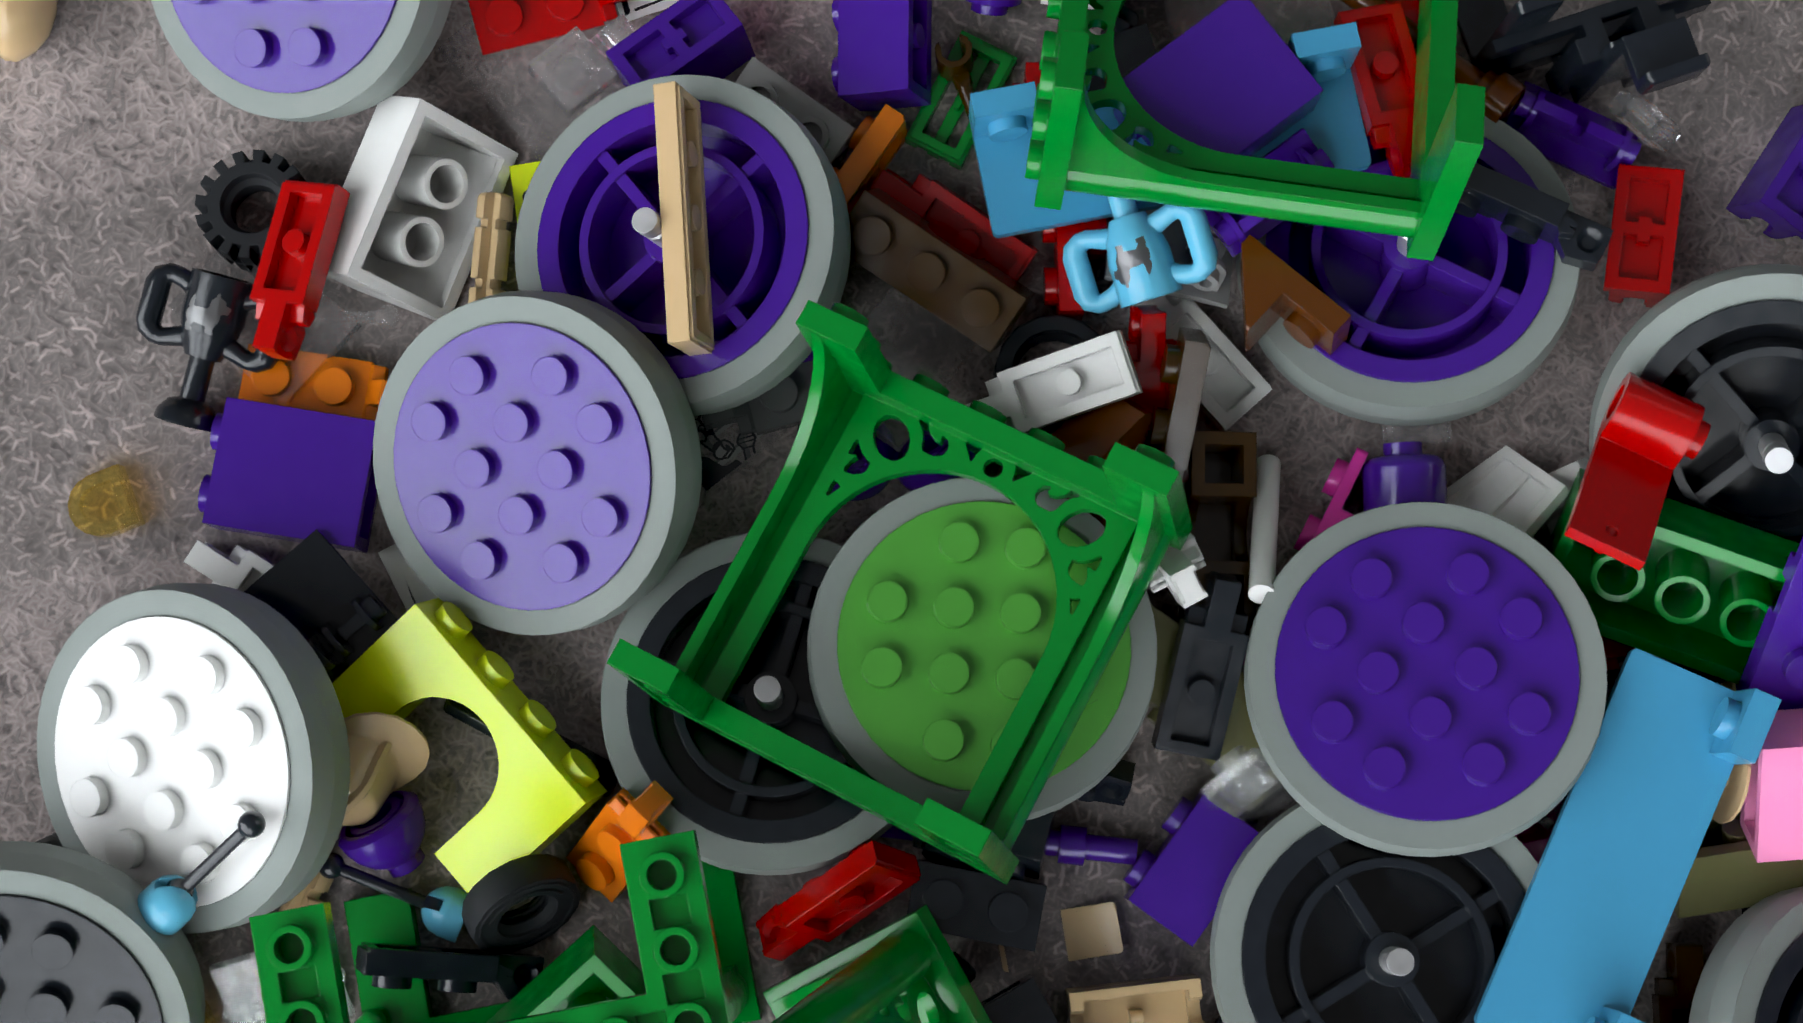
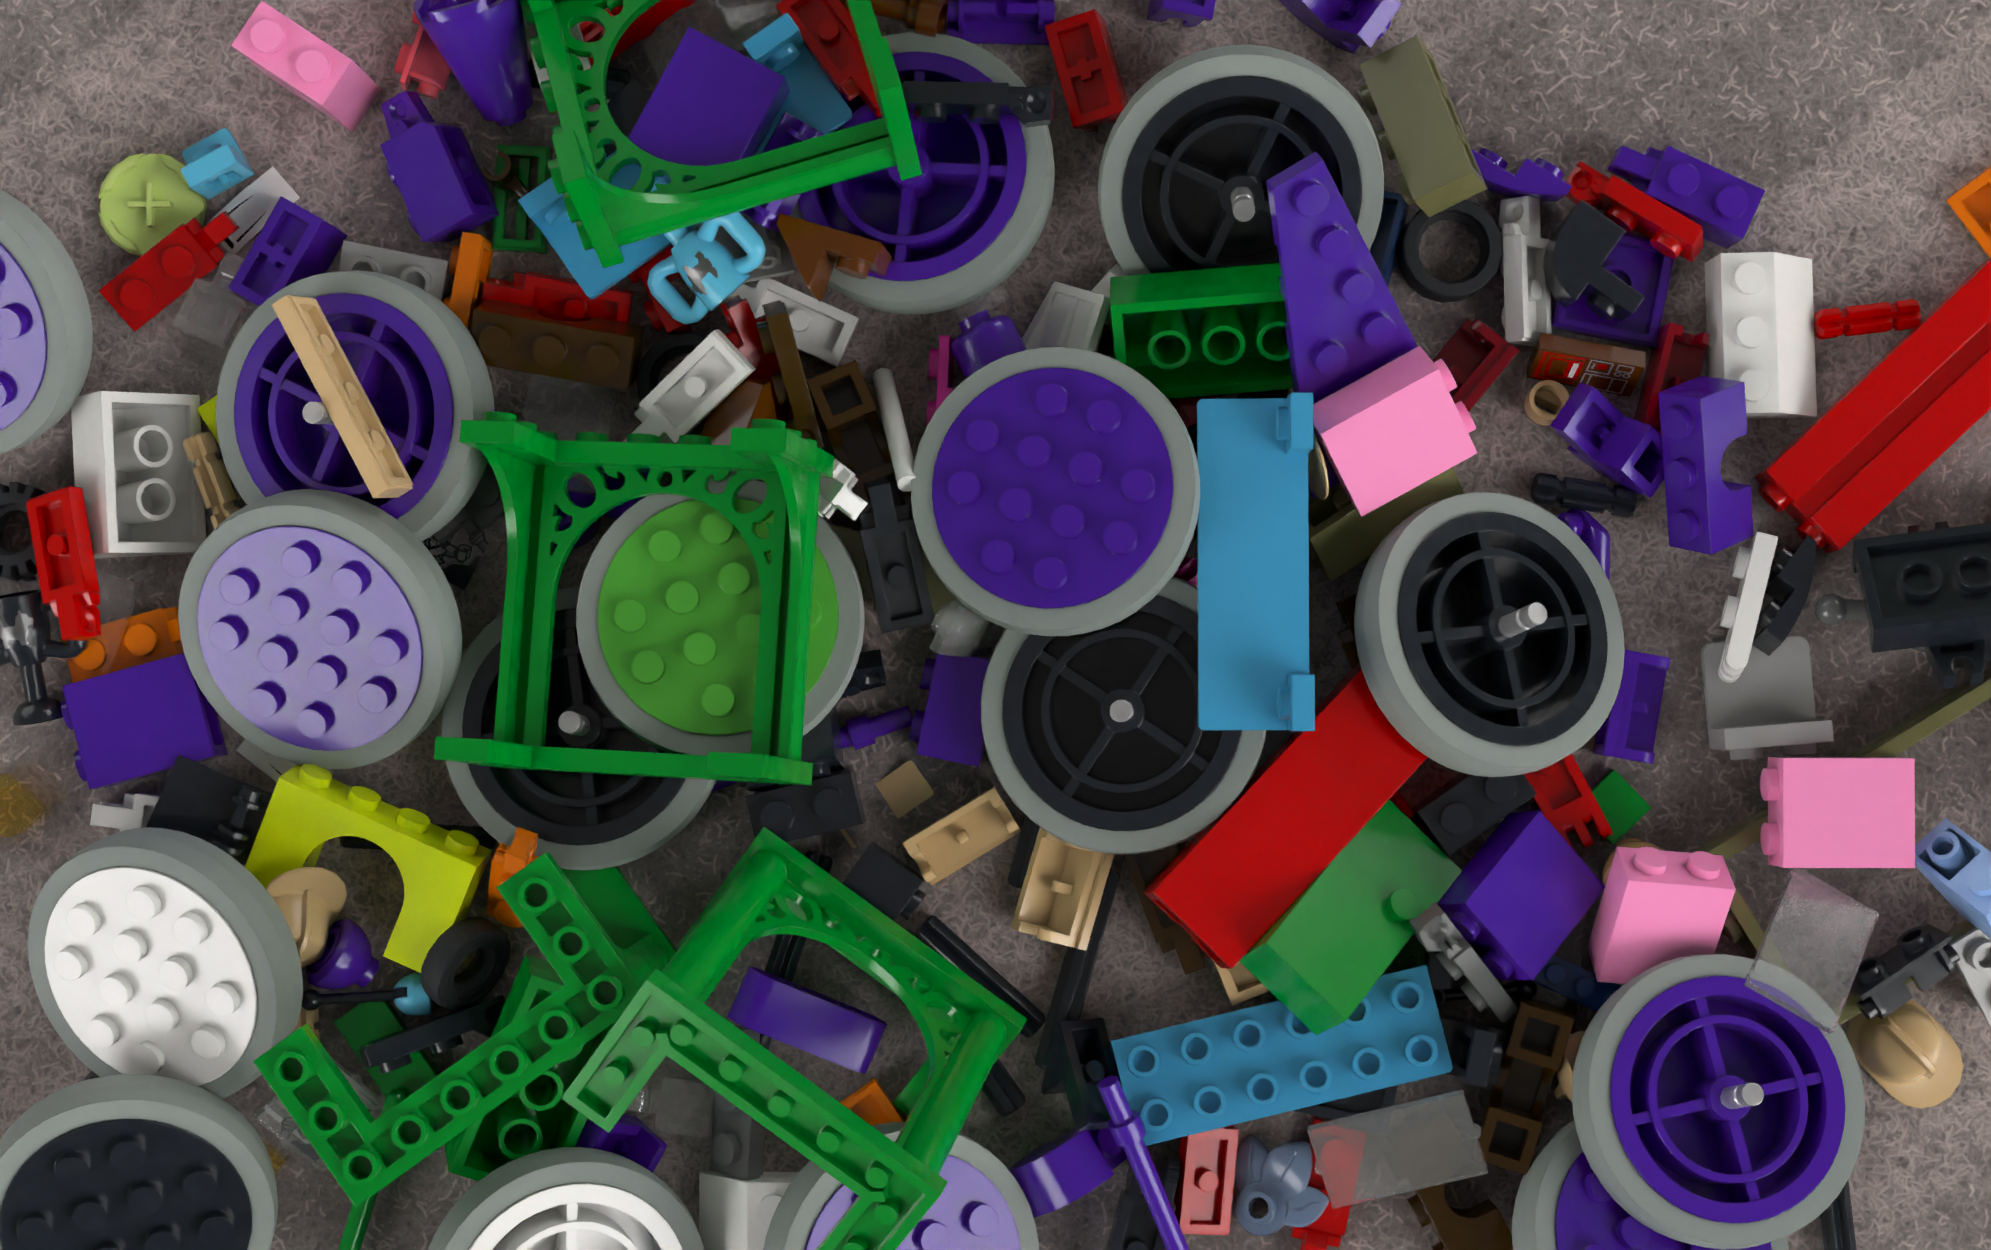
camera: 25 degrees left, 5 degrees up
(172, 899) = (200, 1078): hinge -> none
(837, 898) = (700, 851): red hinge -> none
(1632, 467) = (1143, 264): red door -> none

